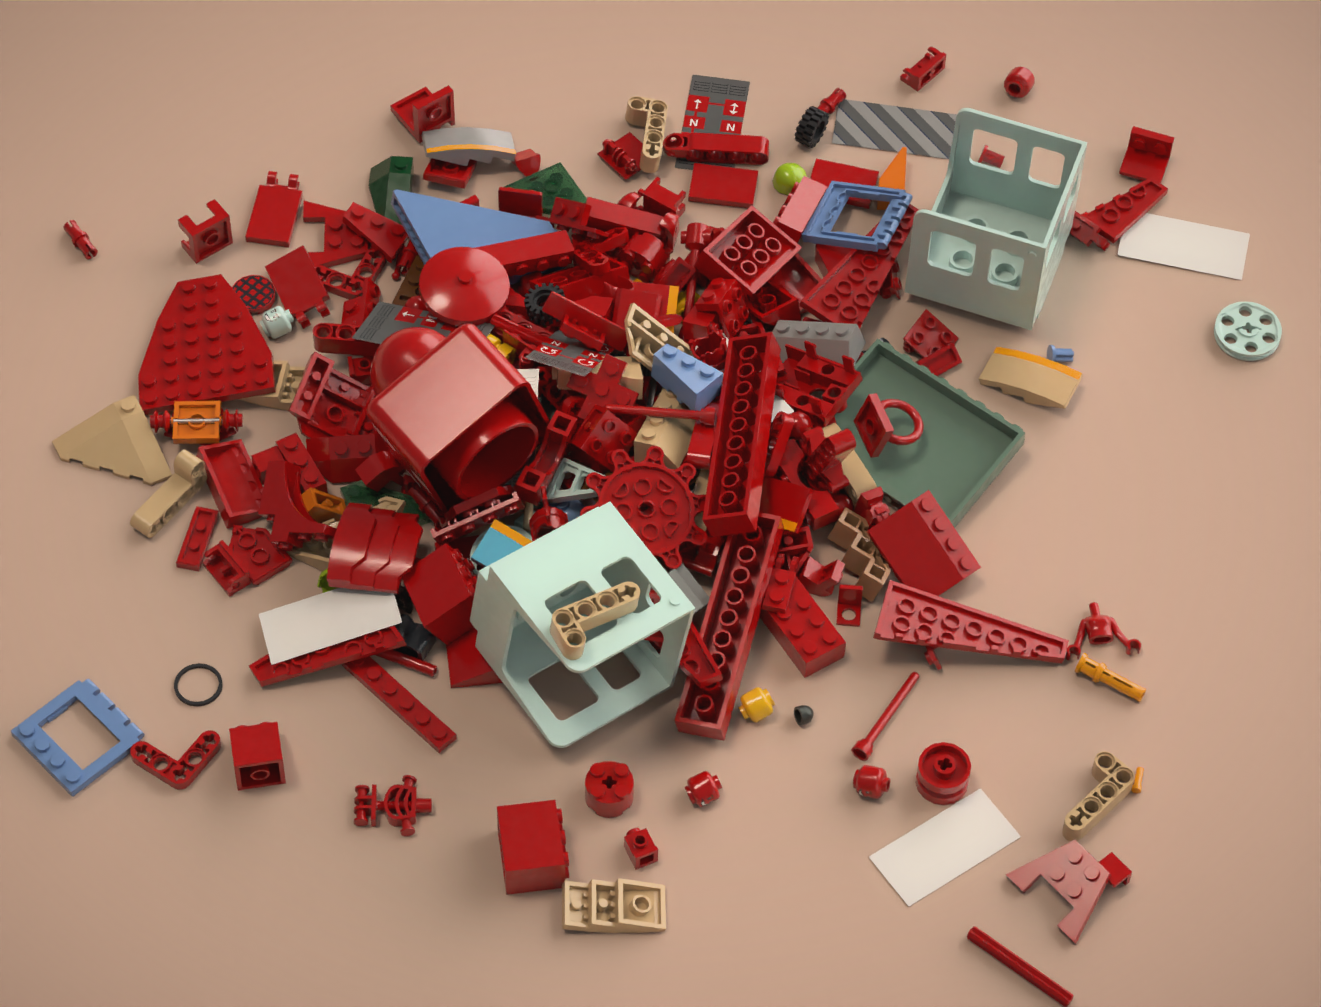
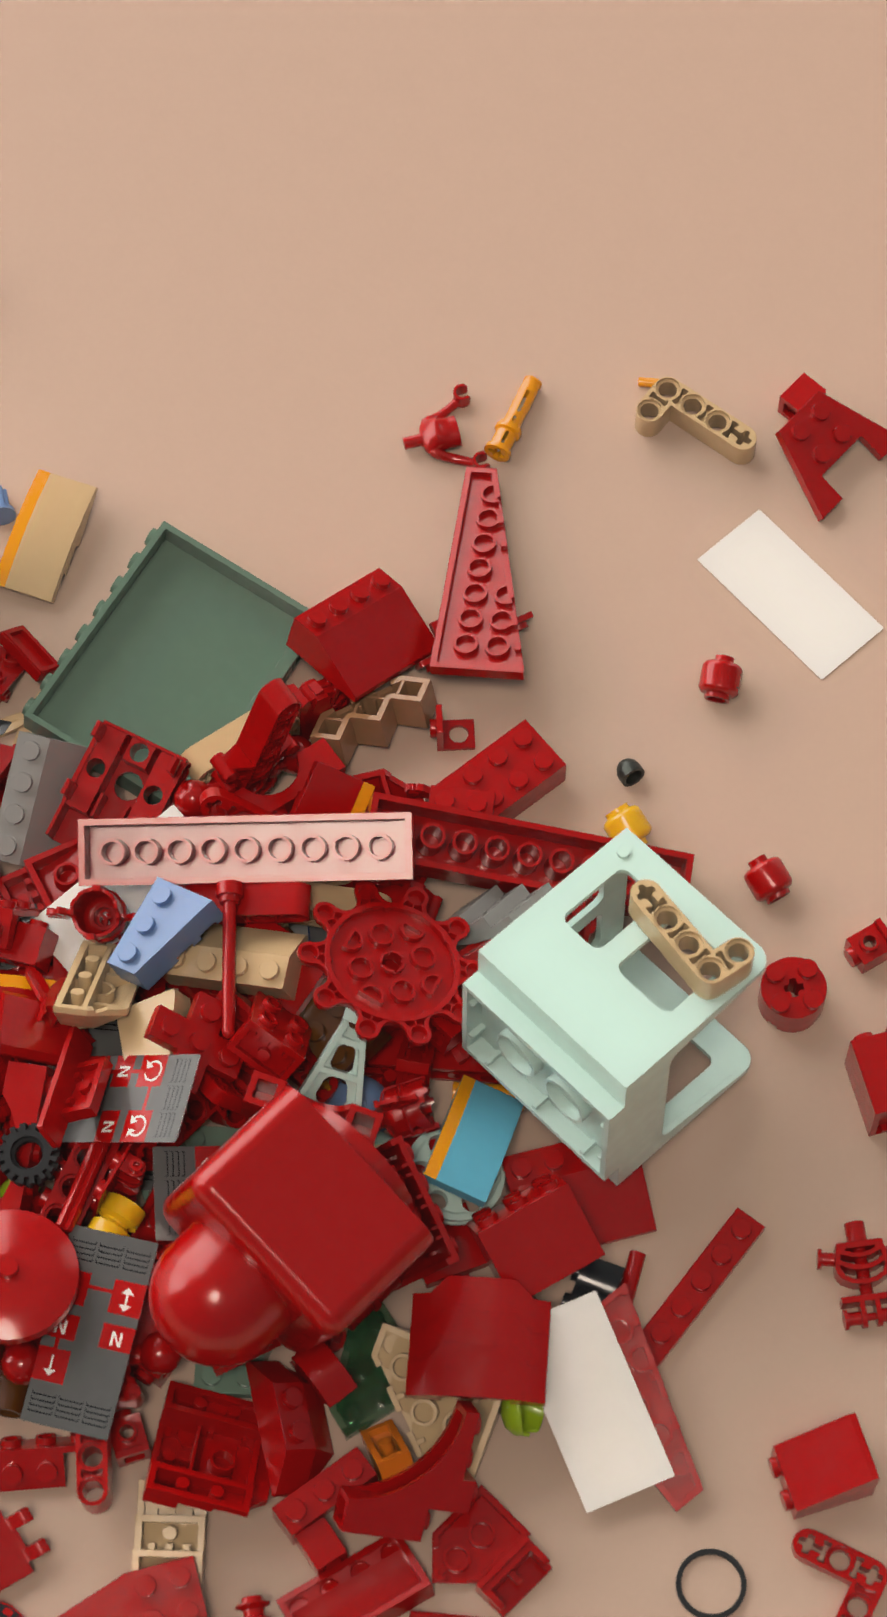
camera: 95 degrees left, 10 degrees up
(276, 322) = (50, 1585): light aqua head -> none
(820, 579) = (417, 757): red brick -> none
(864, 747) = (667, 693): red piece -> none
(876, 427) = (177, 702): red tile -> none
(943, 773) = (696, 594): red wheel -> none

